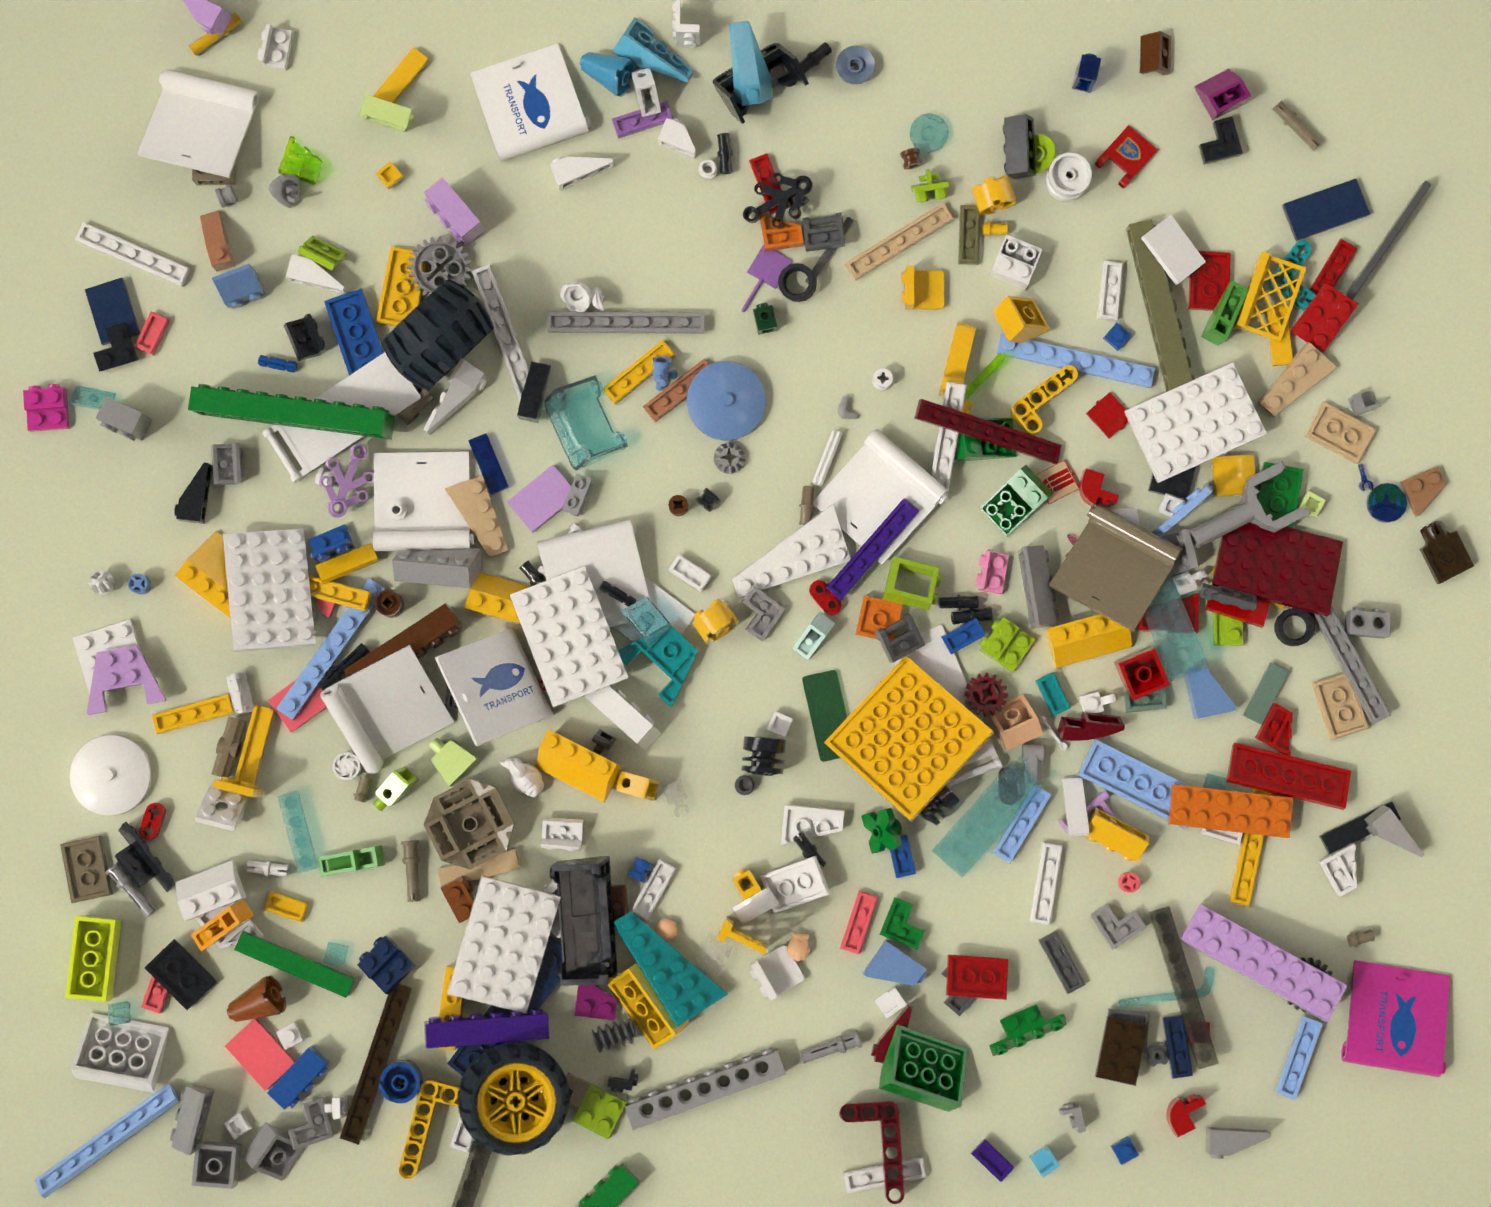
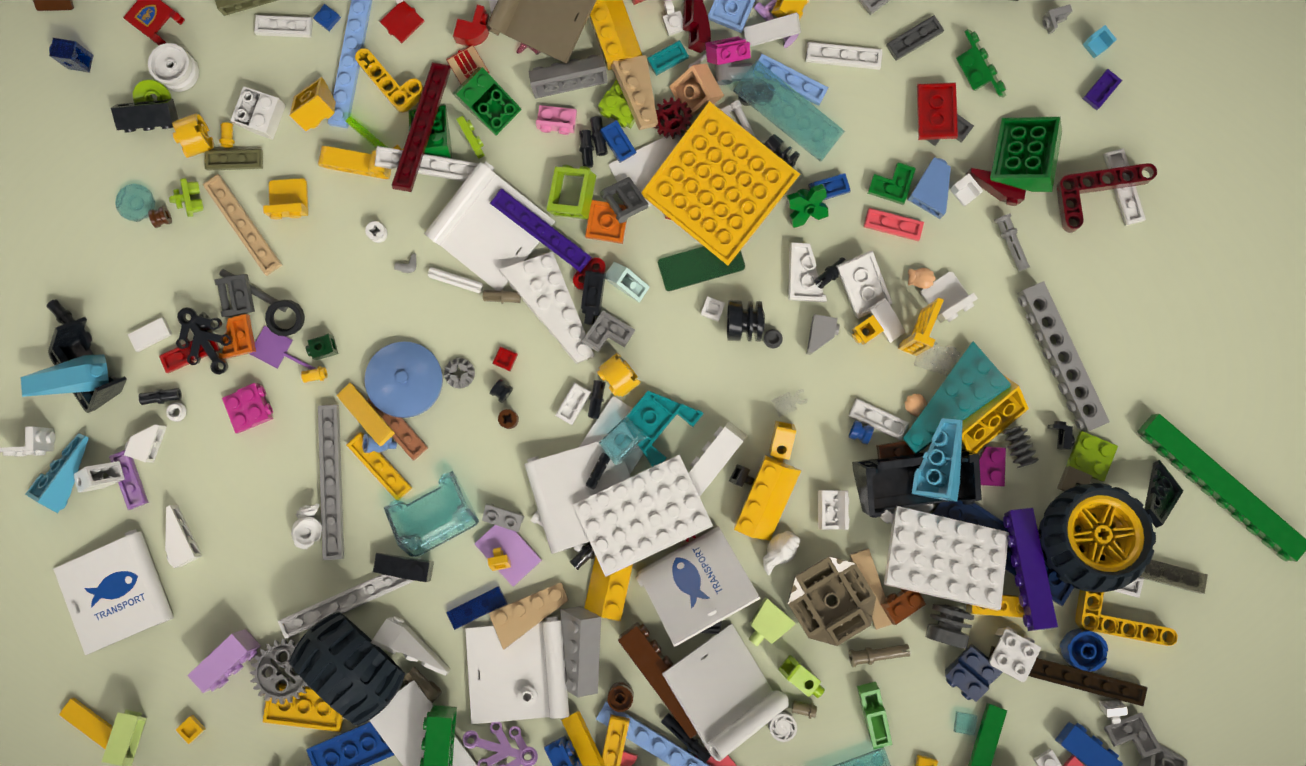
camera: 85 degrees left, 0 degrees up
(402, 1007) = (1014, 654): none -> white bracket
(435, 943) = (949, 626): none -> dark grey wheel
(533, 489) = (499, 560): none -> yellow tile
(553, 1175) = (1161, 494): none -> black wing
(596, 946) = (940, 469): none -> medium azure wedge
(609, 71) = (78, 515): dark azure cone -> none
(691, 360) = (365, 414): none -> yellow tile
(692, 597) = (596, 399): none -> black axle
(707, 241) = (248, 407): none -> dark pink plate
(737, 310) = (314, 374): none -> yellow pin
(741, 505) = (505, 359): none -> red tile
(747, 836) = (821, 332): none -> light grey slope
(789, 144) = (149, 334): none -> white tile
(801, 599) = (592, 295): none -> black hinge
(855, 56) = (61, 273): sand blue dish -> none
(970, 485) = (475, 142): none -> lime plate
(1024, 657) = (637, 89): none -> tan wing
(1054, 757) = (727, 50): none -> dark pink window

